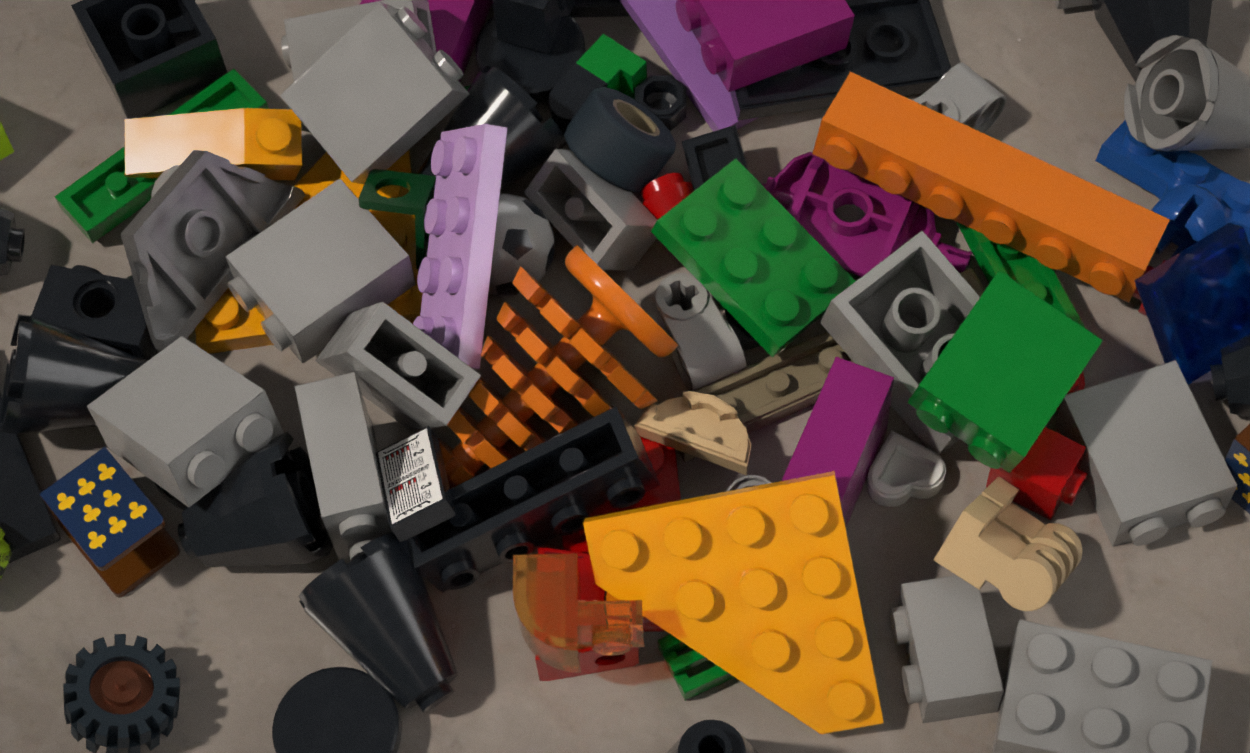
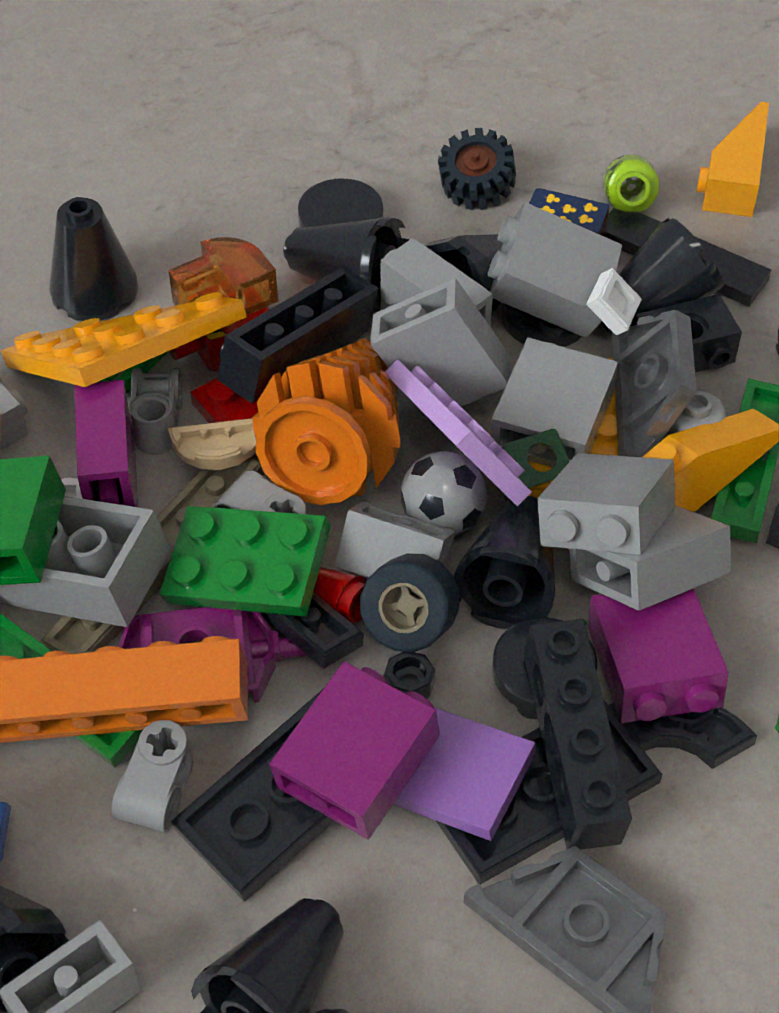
camera: 145 degrees right, 10 degrees down
(161, 337) = (614, 301): none -> white tile
(415, 484) = (366, 286): tile -> none
(602, 65) = (472, 643): leg -> none

